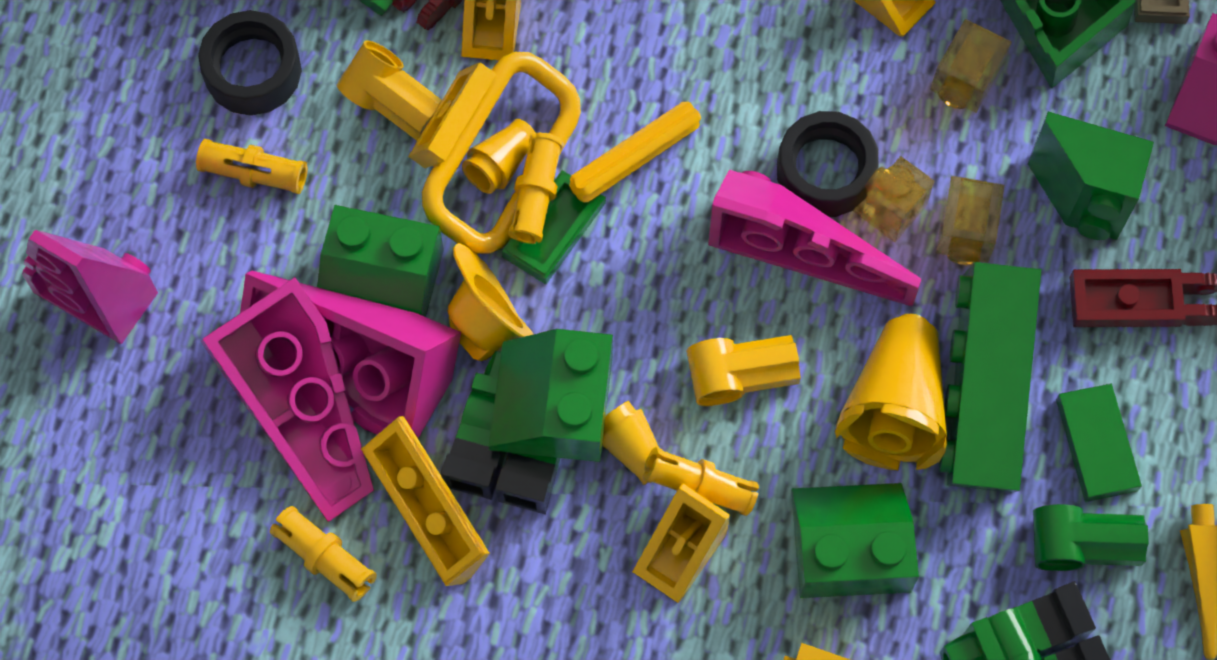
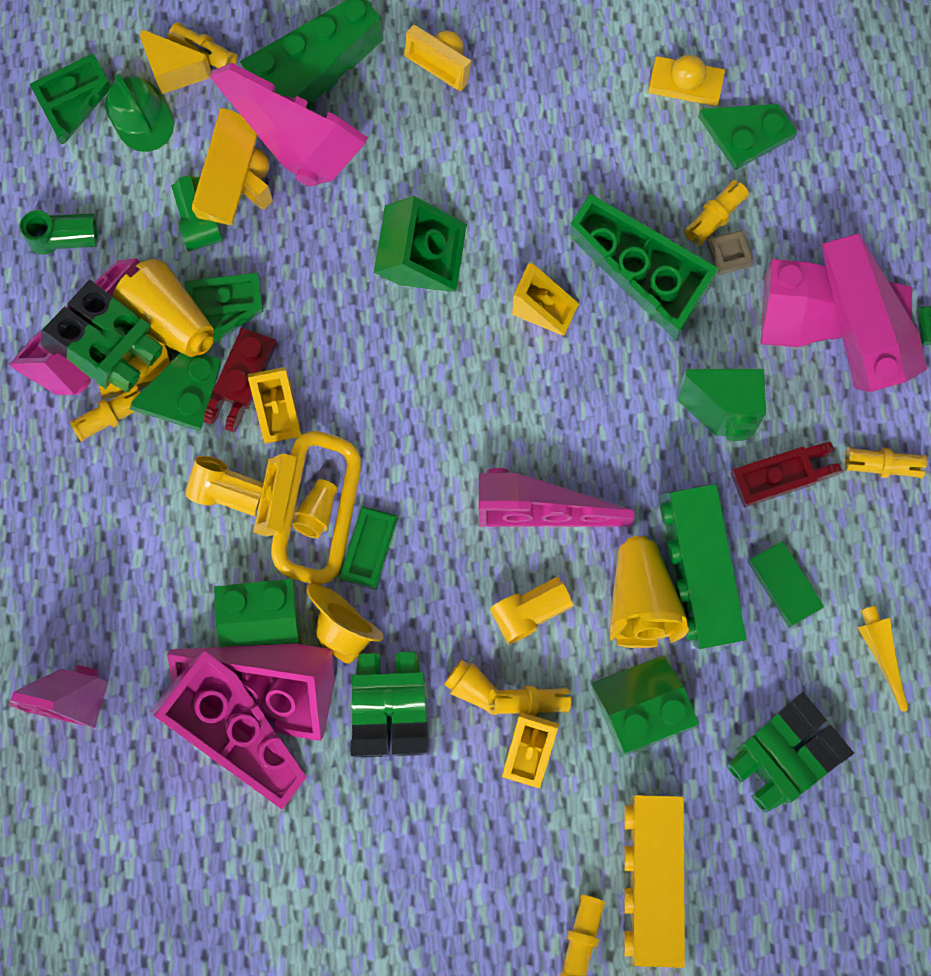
camera: 15 degrees left, 5 degrees up
(219, 158) = (144, 571): yellow pin -> none
(242, 27) = (104, 471): black tyre -> none
(323, 553) = (286, 835): yellow pin -> none
(426, 503) = (346, 777): yellow slope -> none
(535, 188) = (349, 527): yellow pin -> none
(553, 395) = (410, 677): green slope -> none
(634, 151) = (408, 477): yellow axle -> none
(828, 126) = (550, 417): black tyre -> none
(895, 198) = (596, 455): clear yellow brick -> none
(969, 220) = (652, 456): clear yellow brick -> none
(970, 66) = (618, 345): clear yellow brick -> none
(1070, 539) = (791, 658): green piece -> none

